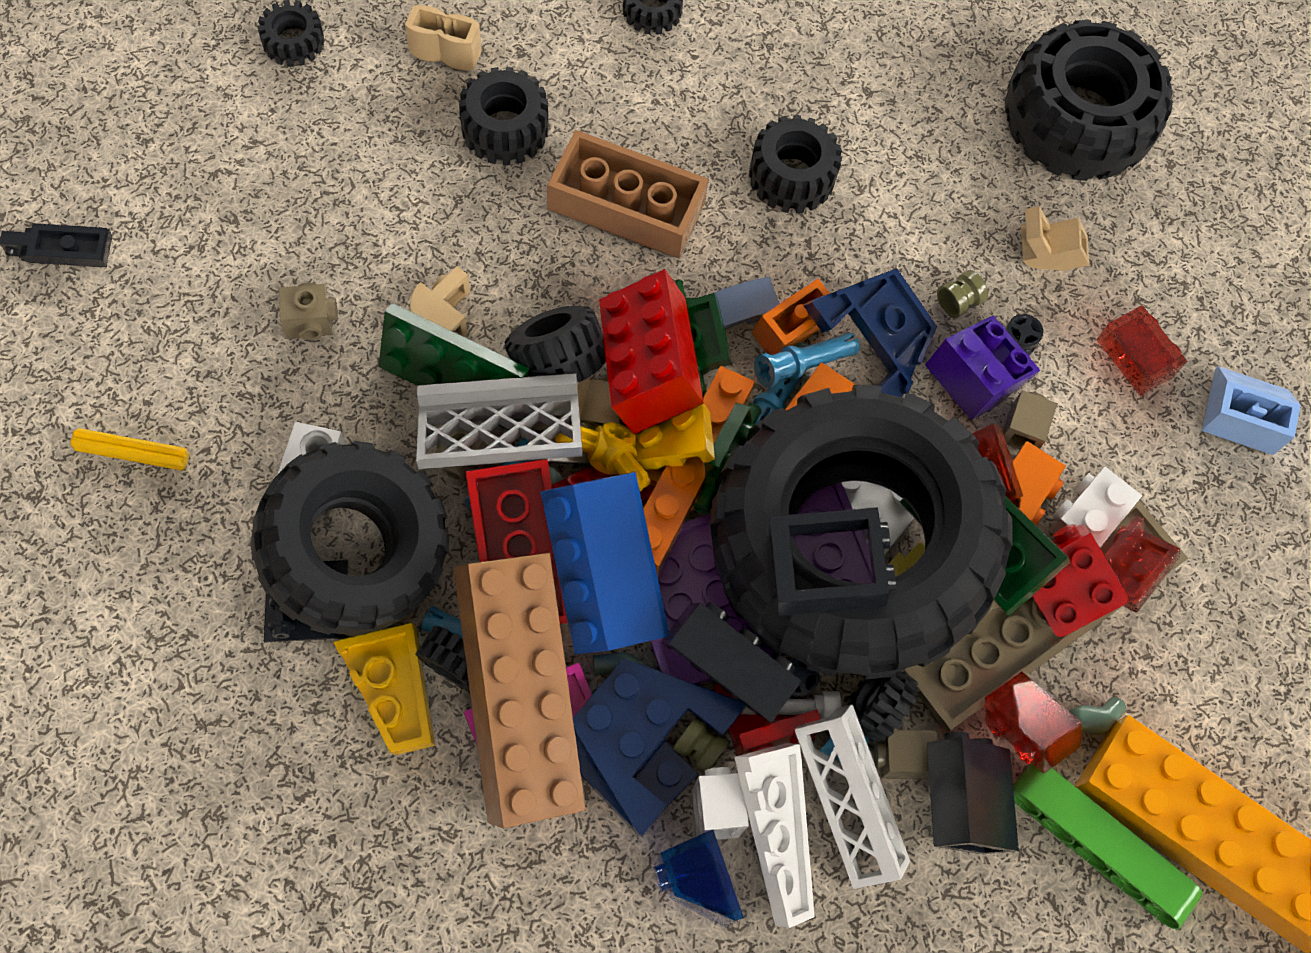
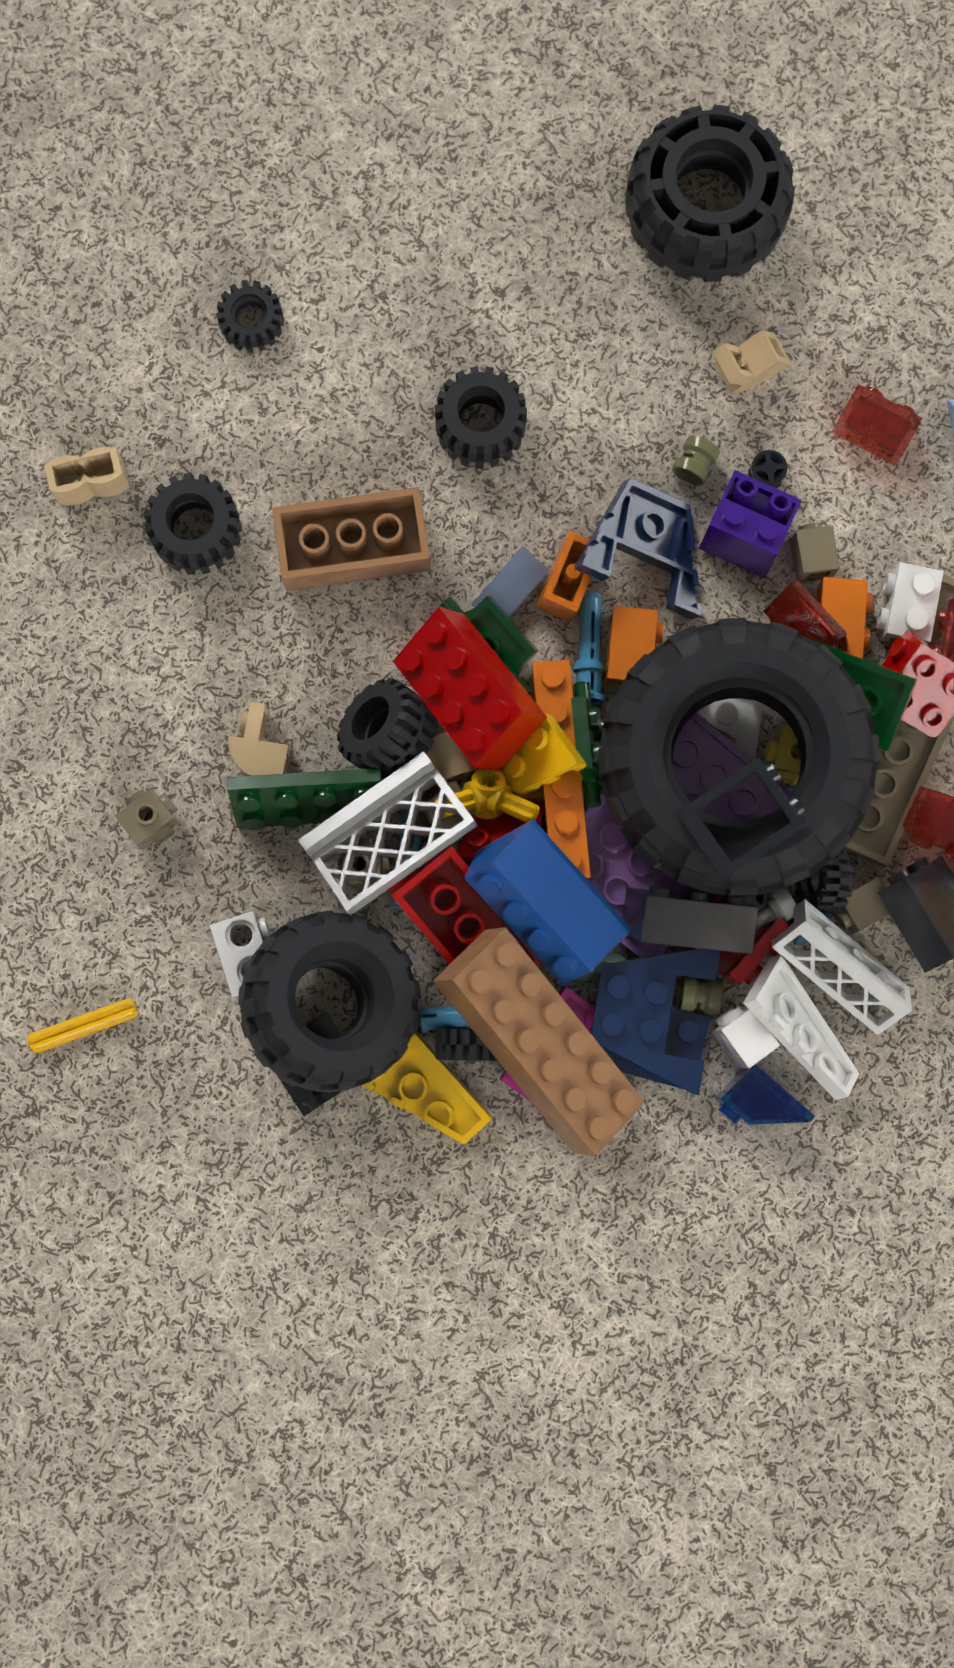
camera: 25 degrees left, 15 degrees up
(794, 361) = (591, 619): dark azure pin -> none

